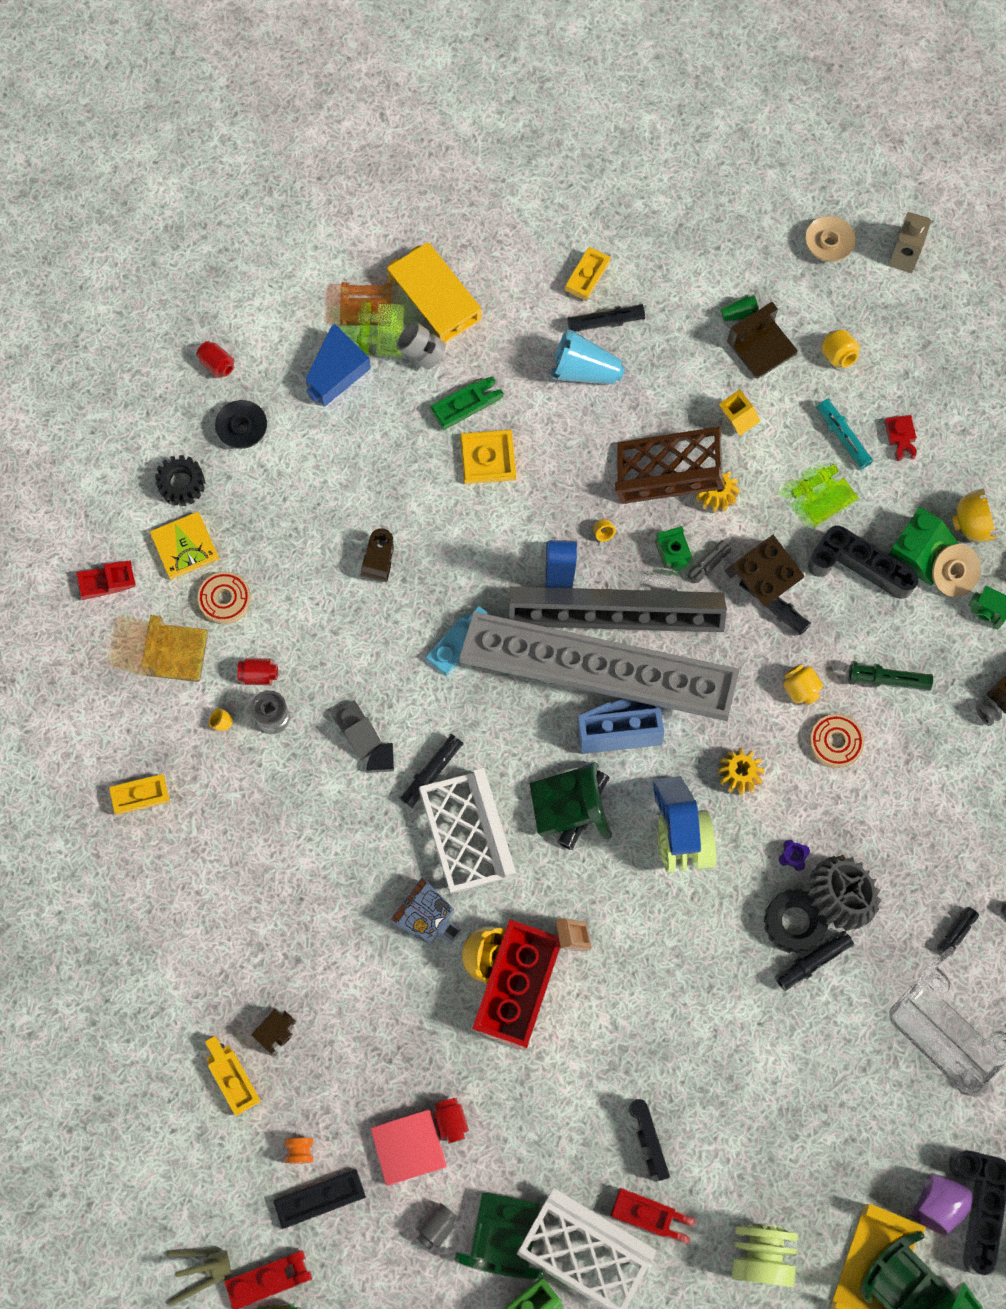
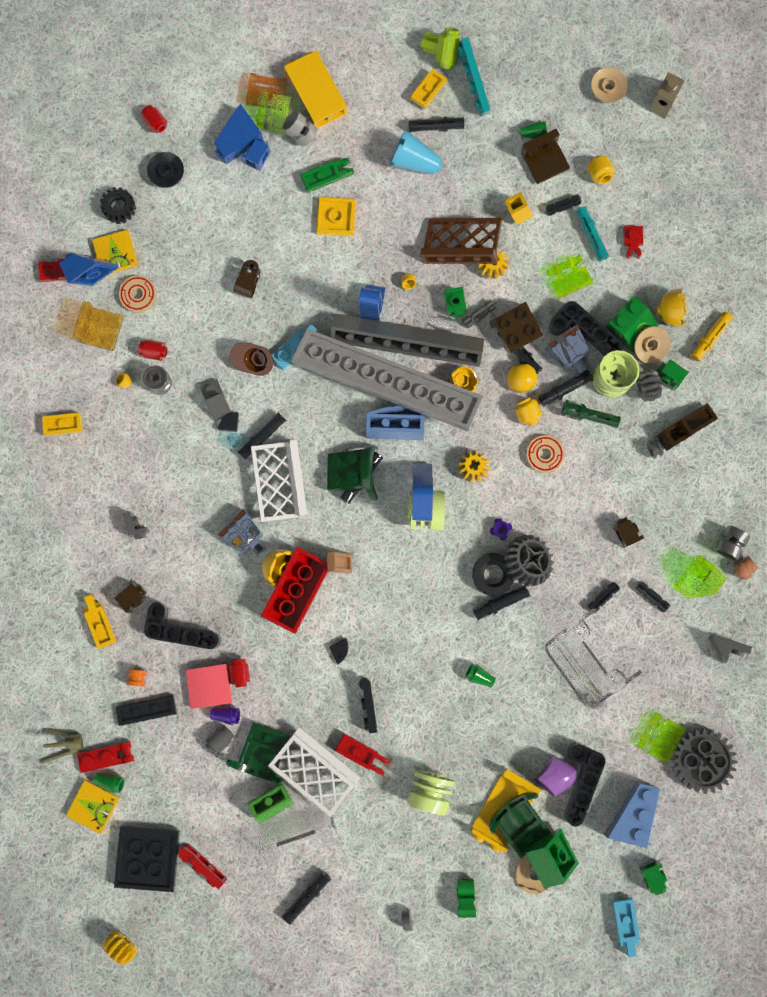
camera: 15 degrees right, 10 degrees up
(148, 572) = (86, 269): none -> blue slope
(261, 923) = (131, 525): none -> dark grey bracket
(359, 1071) = (183, 632): none -> black beam
(365, 387) = (256, 154): none -> blue brick
(397, 781) = (238, 440): none -> clear light blue hinge
(401, 664) = (251, 358): none -> reddish brown piece
(440, 1187) = (228, 715): none -> dark purple cone
(593, 1065) = (340, 650): none -> black tile
(599, 215) = (443, 46): none -> lime piece
(646, 249) = (471, 71): none -> teal wing
(705, 648) = (464, 378): none -> yellow hair
(785, 640) = (521, 378): none -> yellow hair
(797, 401) = (563, 204): none -> black axle
(800, 1071) = (479, 676): none -> green cone
(839, 652) = (559, 391): none -> black pin
(845, 593) = (570, 350): none -> sand blue torso
(915, 615) = (624, 368): none -> yellowish green wheel
(963, 625) = (649, 385): none -> dark grey gear
(974, 833) = (627, 532): none -> dark brown brick

